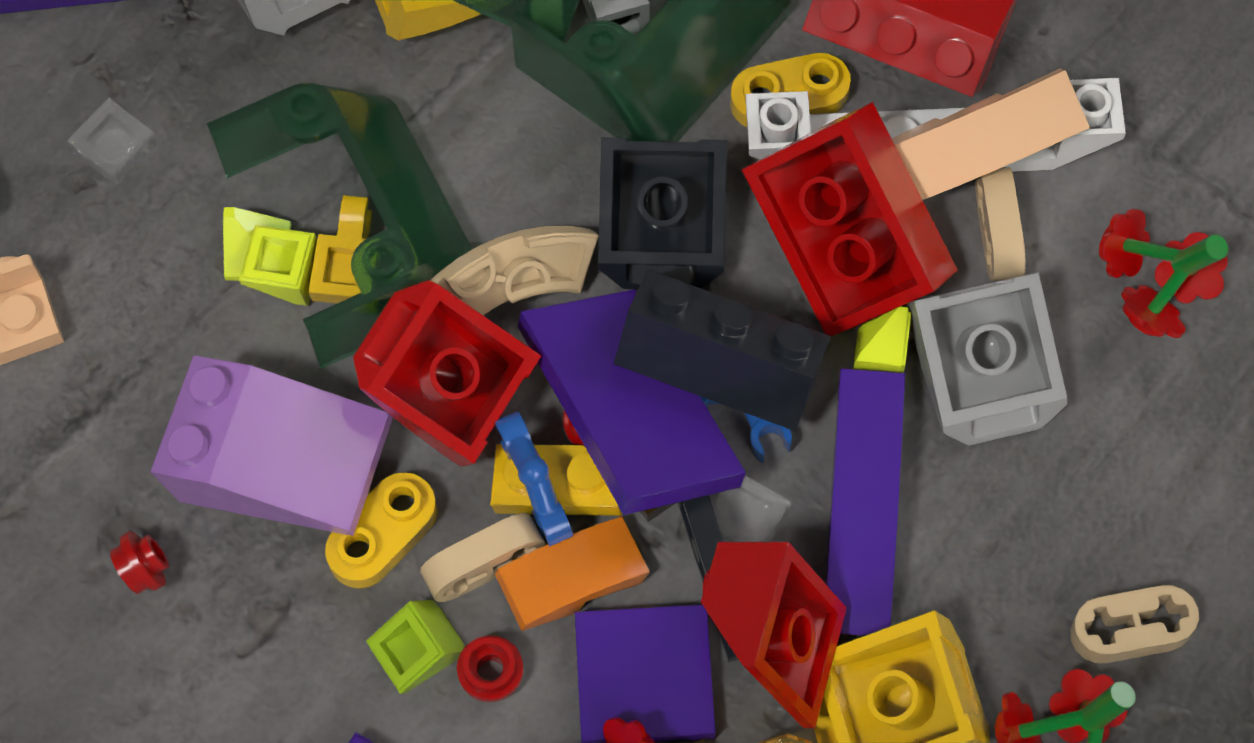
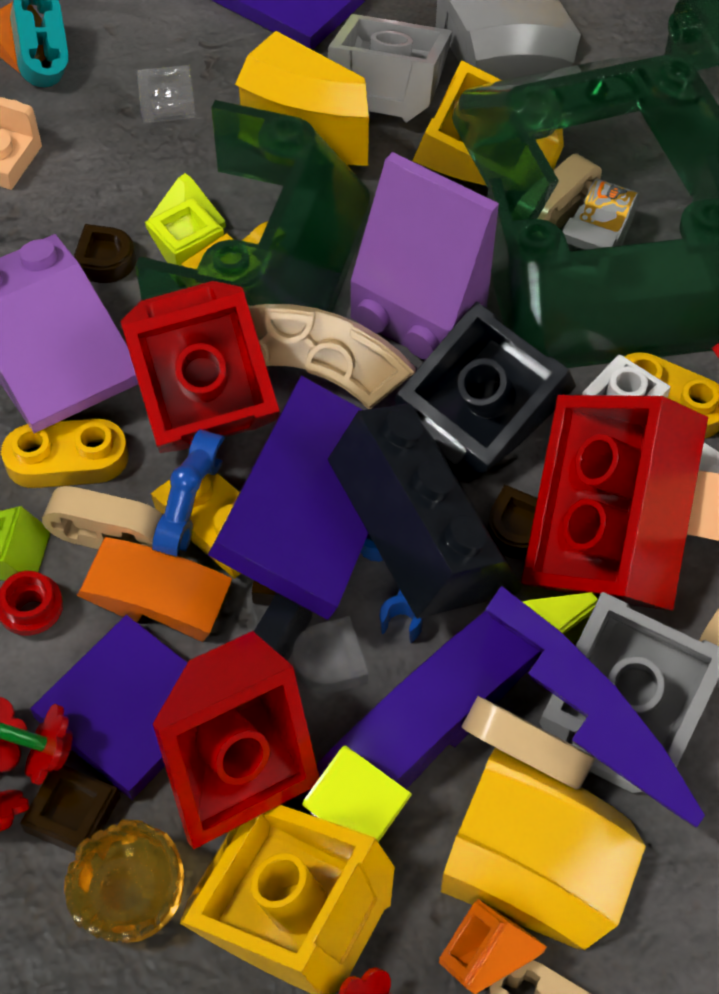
camera: 40 degrees right, 10 degrees down
(220, 332) = (105, 253): none -> dark brown tile
(271, 50) = (307, 85): none -> yellow slope
(530, 138) = (422, 256): none -> medium lavender slope
(777, 291) = (512, 521): none -> dark brown tile
(885, 594) = (356, 795): none -> neon yellow slope
(957, 455) = (528, 743): none -> tan beam
(1005, 395) = (611, 726): none -> dark purple slope
(1027, 522) = (544, 854): none -> yellow slope
(1057, 618) = (488, 948): none -> orange slope

